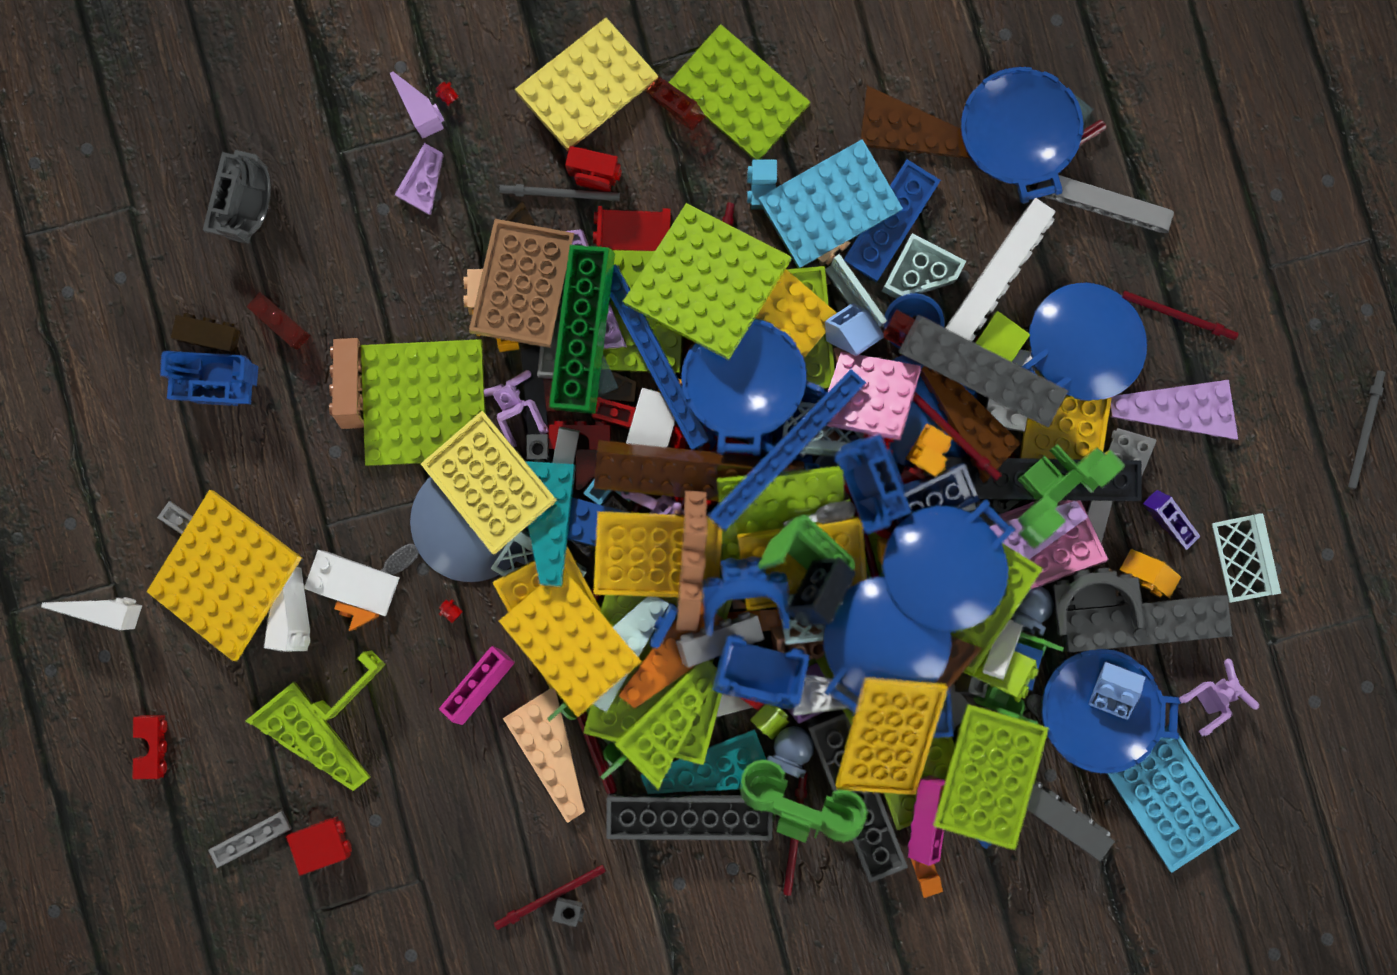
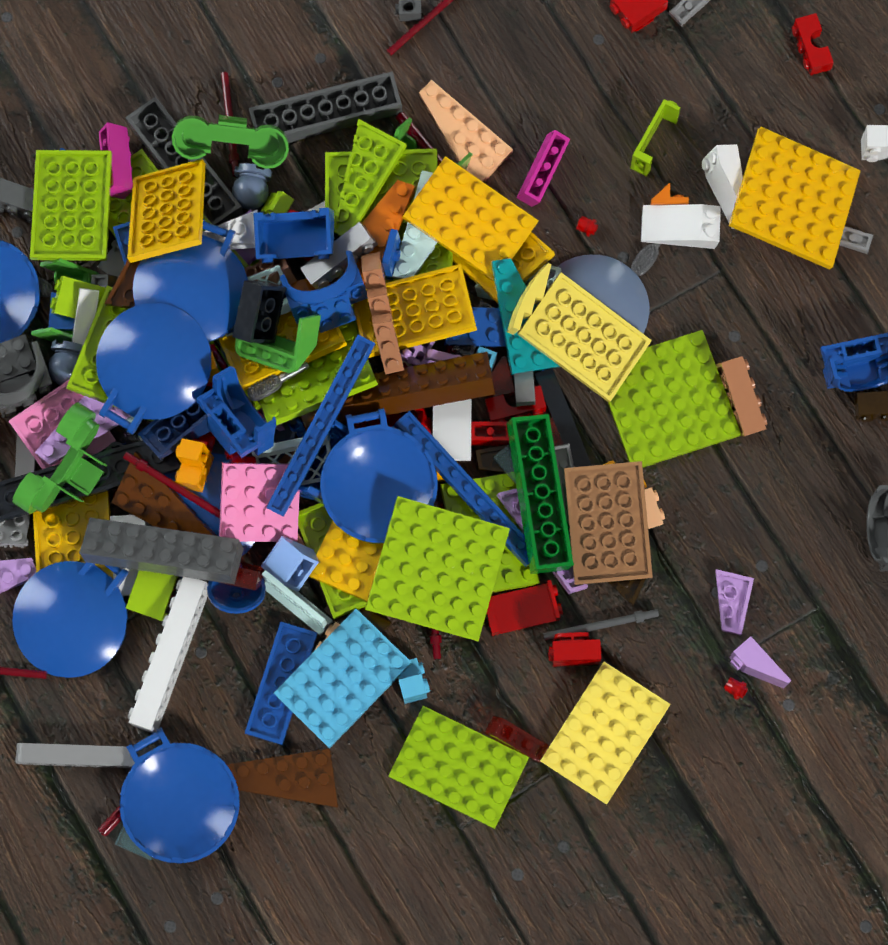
camera: 170 degrees right, 10 degrees down
(278, 321) = (822, 434): clear red brick -> none
(296, 727) = (697, 97): lime wing -> none
(511, 404) = (584, 415): lavender piece -> none
(527, 539) = (532, 295): none -> light yellow slope
(533, 440) = (550, 391): dark grey brick -> none
(720, 771) = (307, 160): teal wing -> none
(922, 268) = (241, 641): light aqua brick -> none
(927, 878) = (104, 114): orange slope -> none

